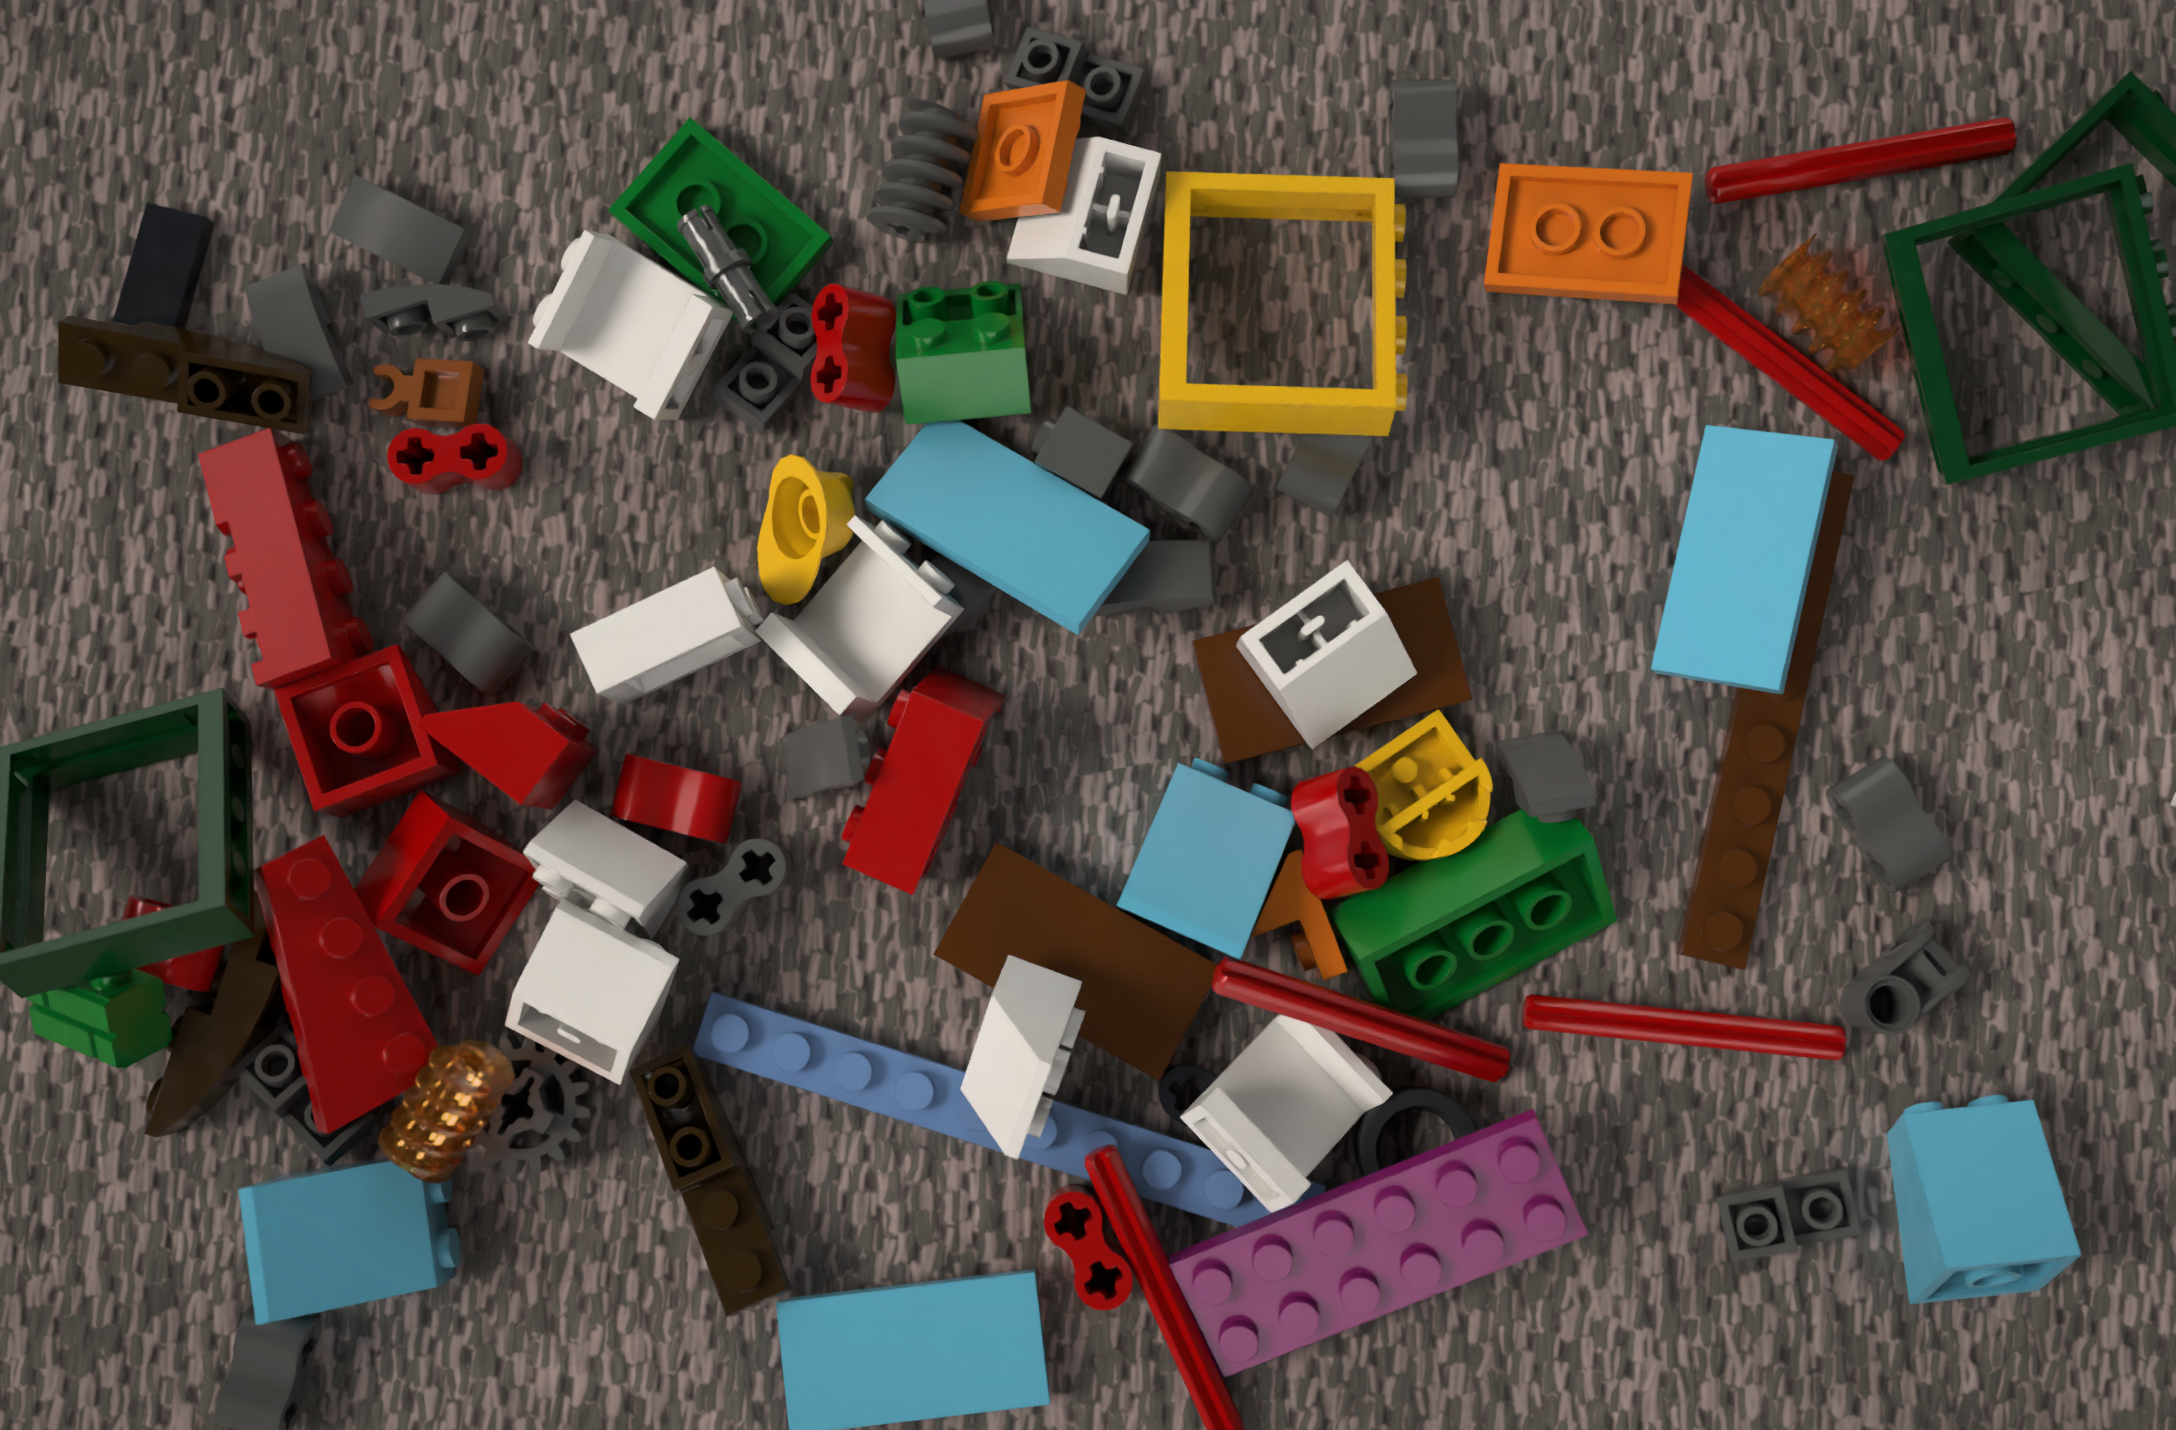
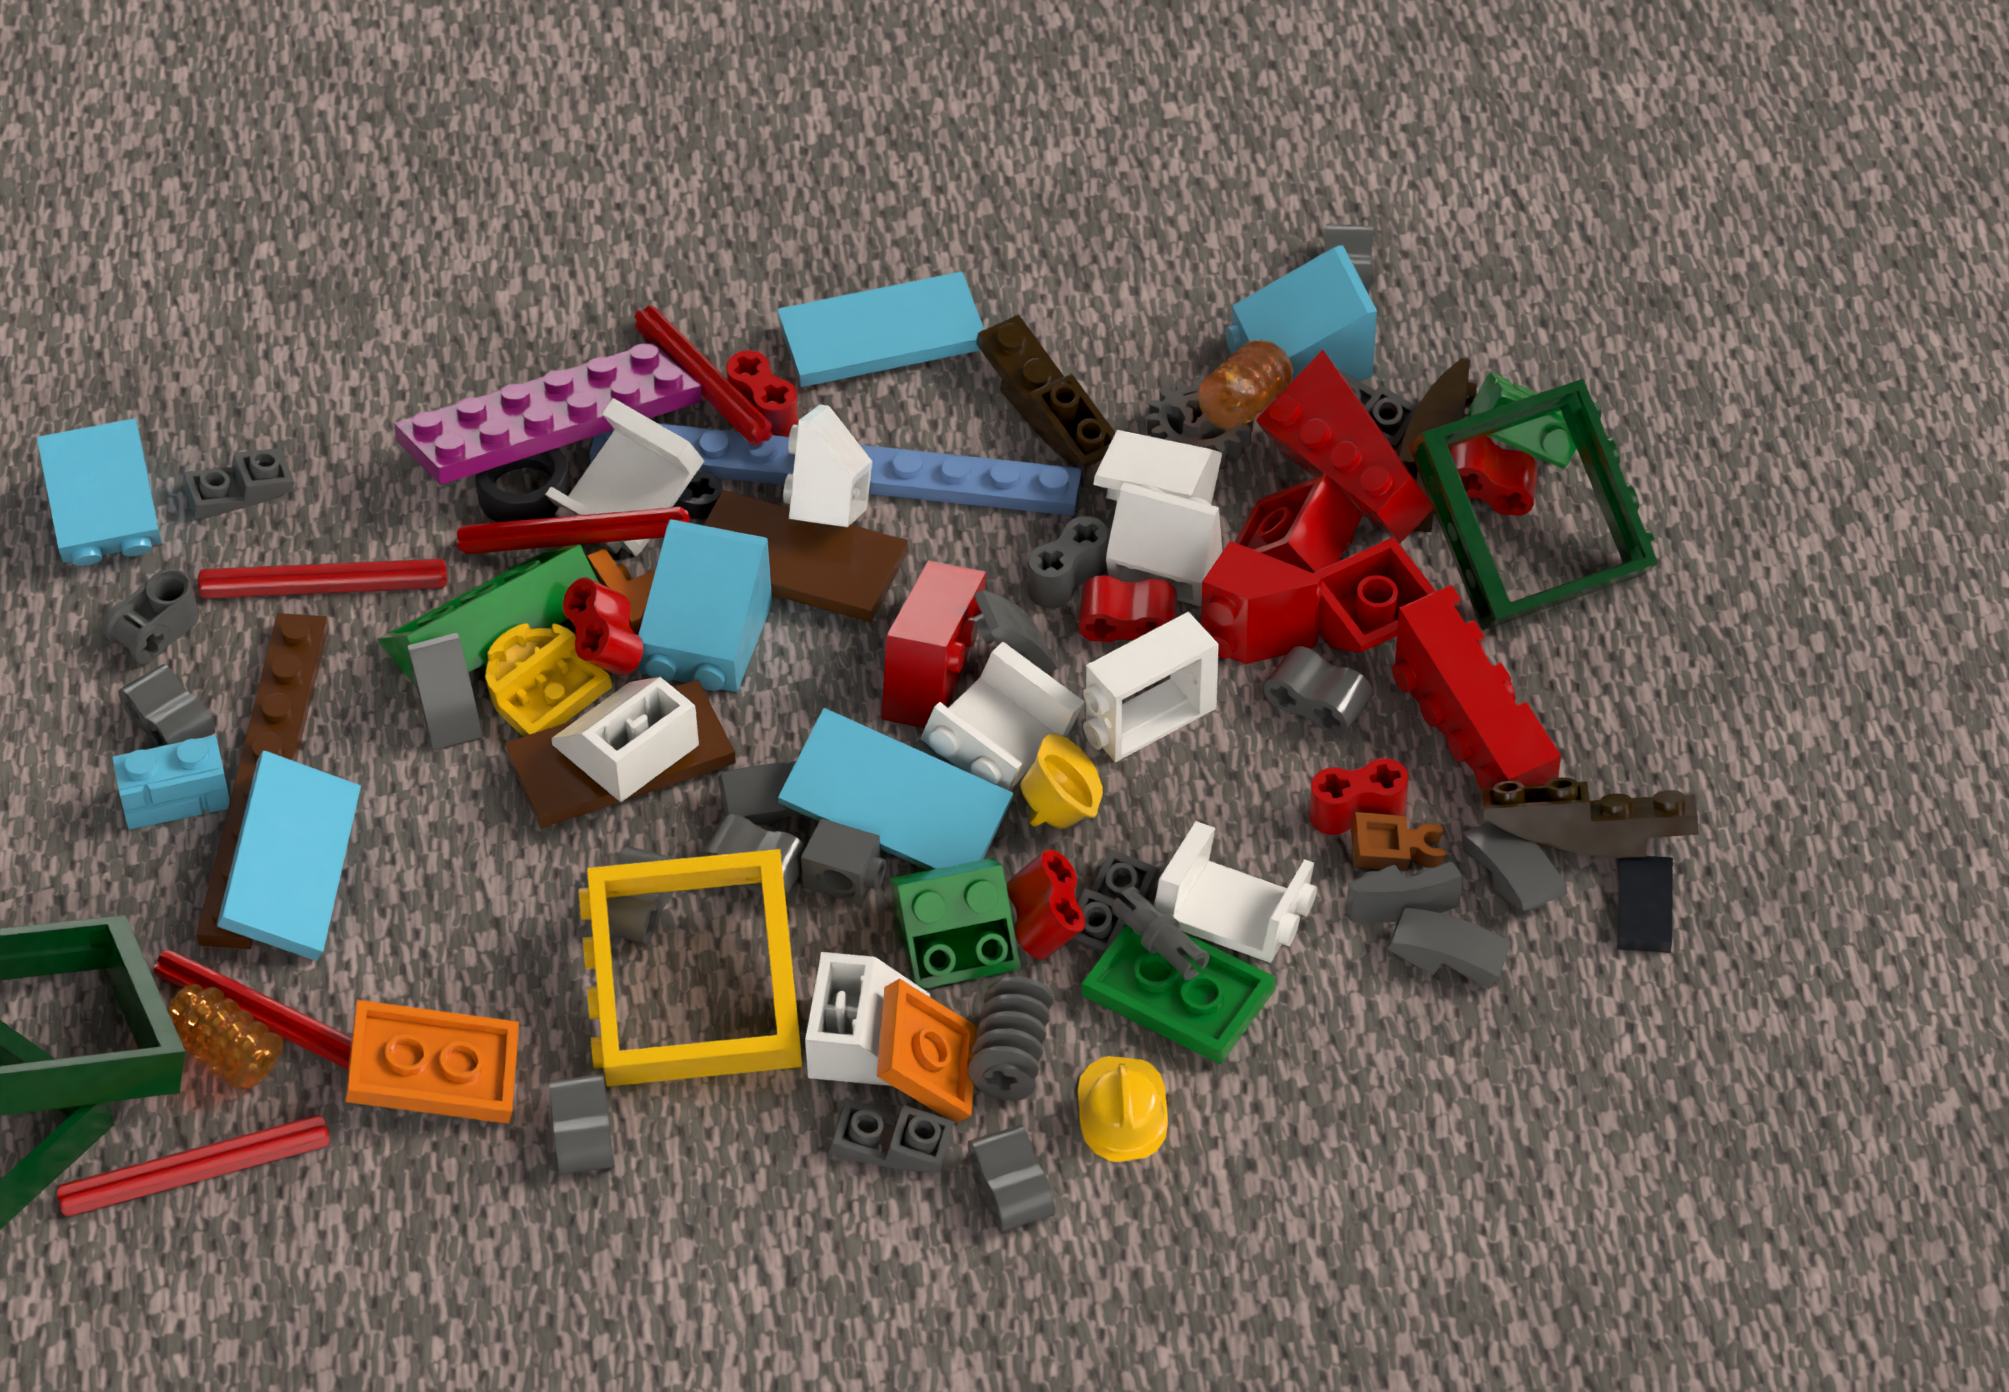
camera: 165 degrees right, 35 degrees down
(814, 93) = (1122, 1108): none -> yellow piece
(1885, 700) = (171, 782): none -> medium azure brick

